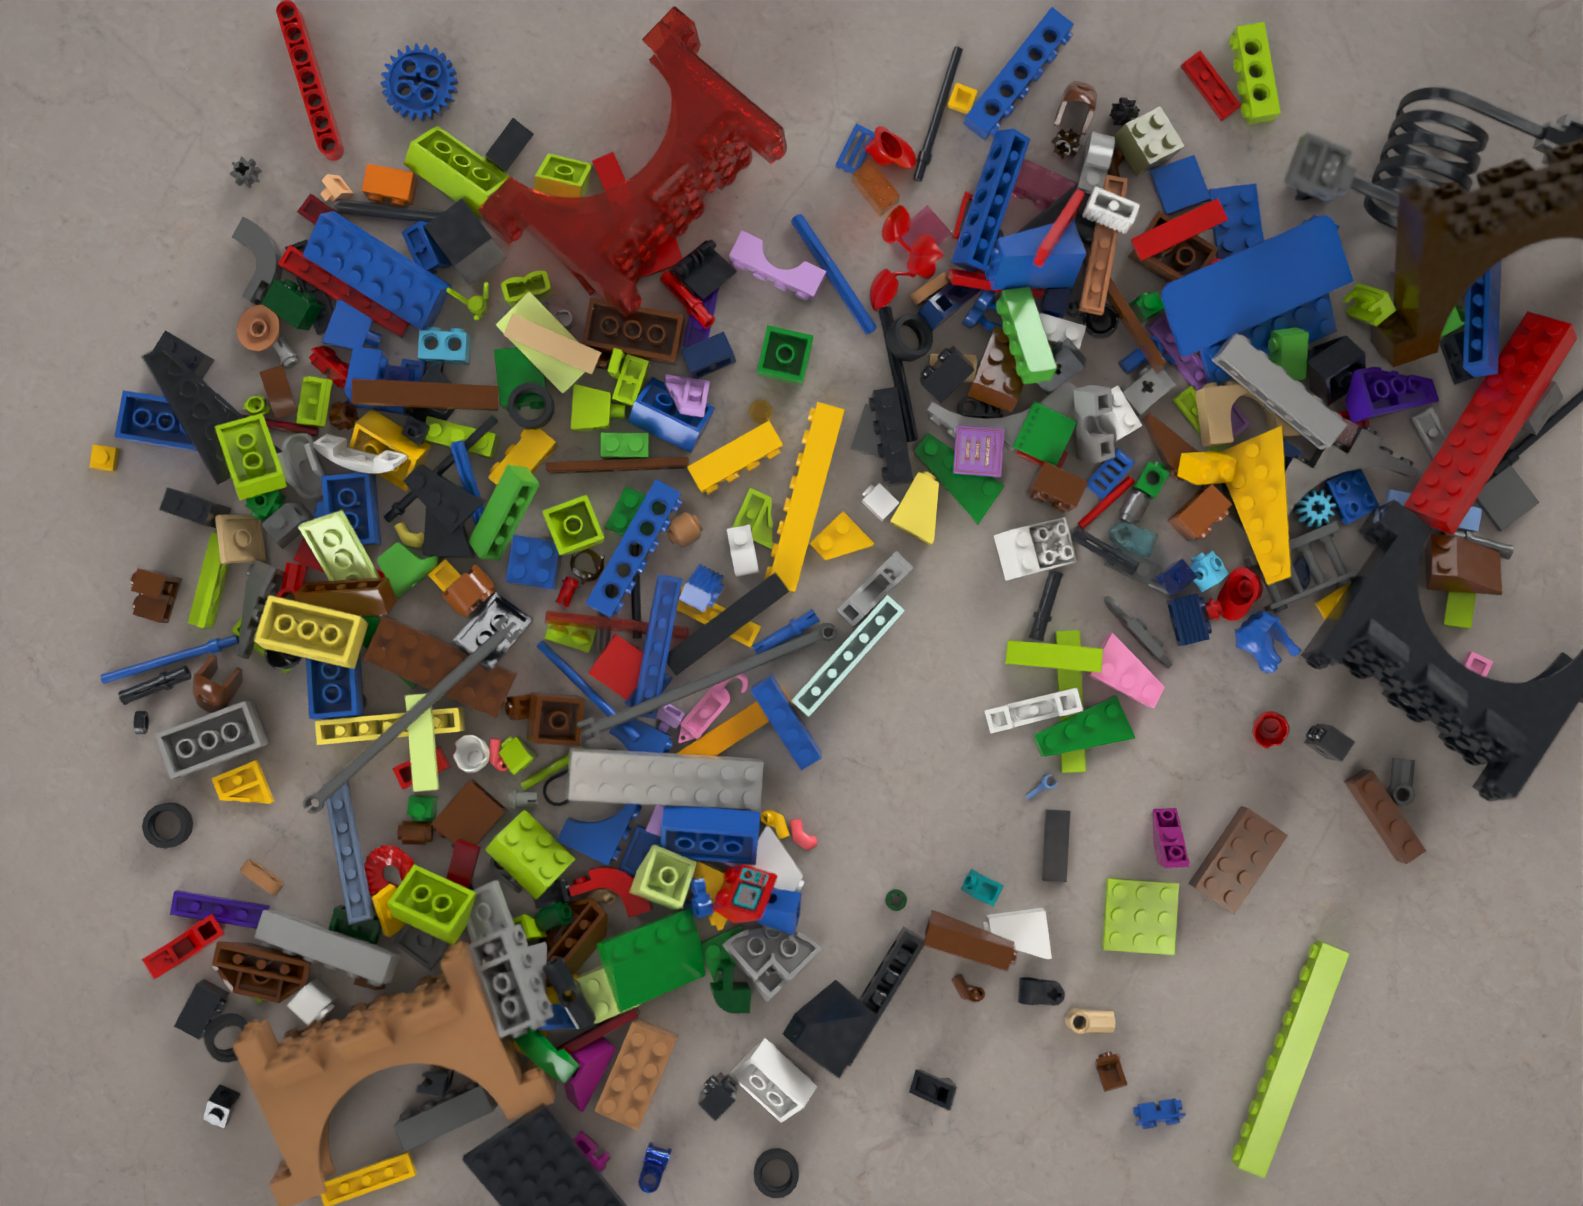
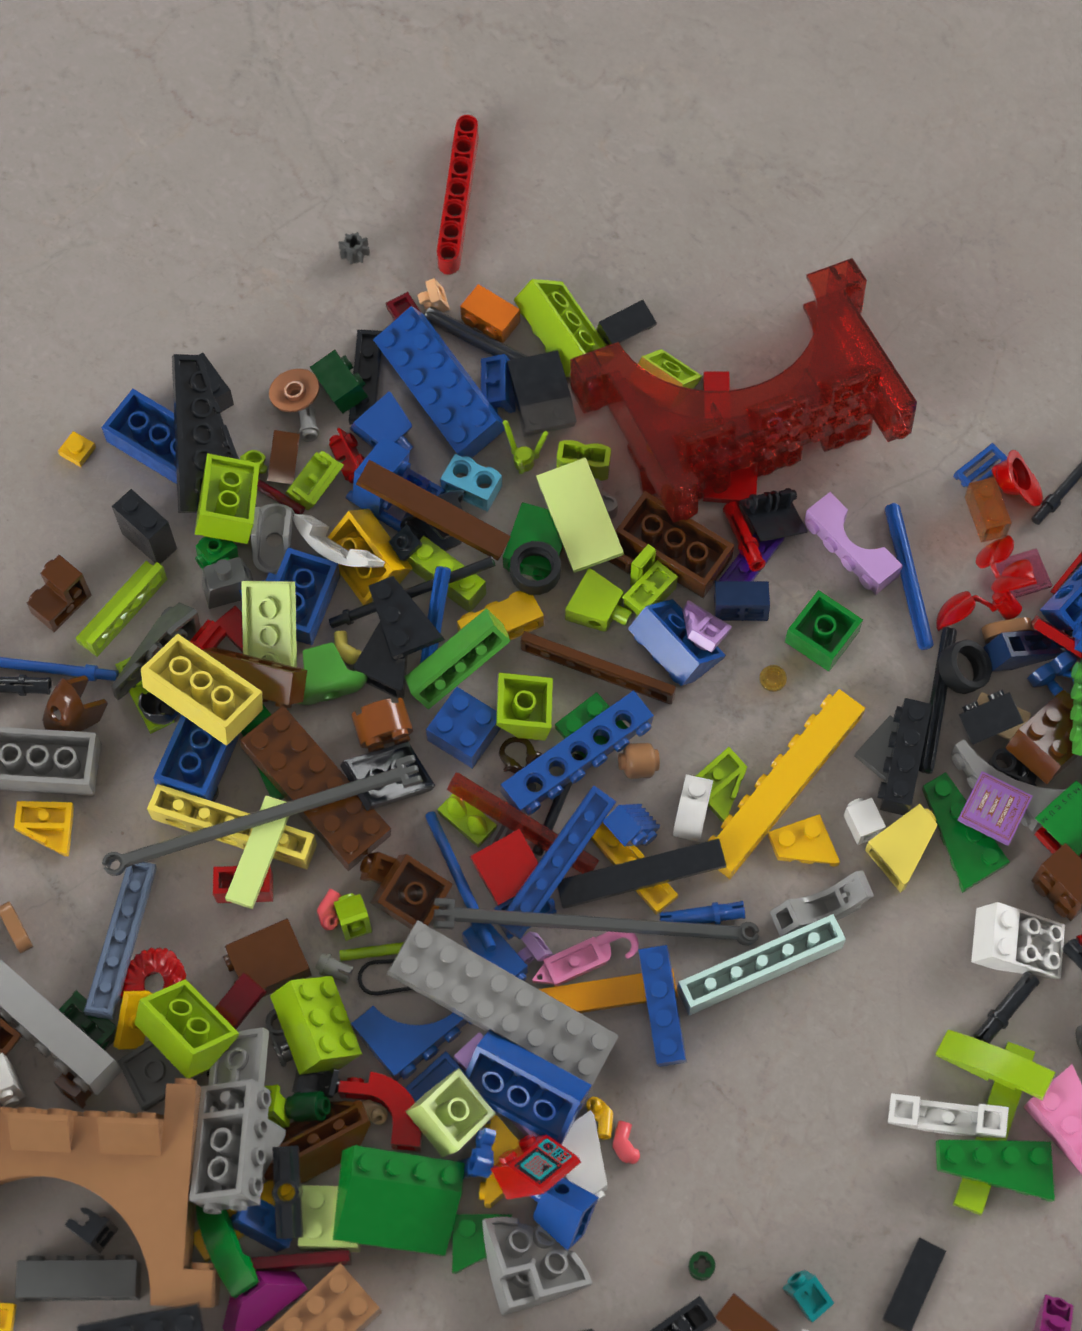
camera: 25 degrees right, 20 degrees down
(240, 539) = (173, 575): tan tile -> none
(266, 255) = (333, 311): dark grey arch -> none
(316, 276) = (387, 379): red tile -> none
(343, 415) = (336, 503): reddish brown gear -> none
(415, 833) = (201, 952): reddish brown brick -> none
(422, 807) = (222, 927): green brick -> none
(425, 63) = (564, 236): blue gear -> none
(444, 575) = (361, 697): yellow plate -> none
(471, 753) = (303, 893): white hair -> none
(552, 344) = (586, 516): tan tile -> none
(568, 589) = (486, 771): red pin -> none
(625, 446) = (615, 648): bright green brick -> none
(730, 995) = (462, 1285): dark green brick -> none
(735, 457) = (726, 711): yellow brick -> none
(1043, 785) = (923, 1210): medium blue hand -> none

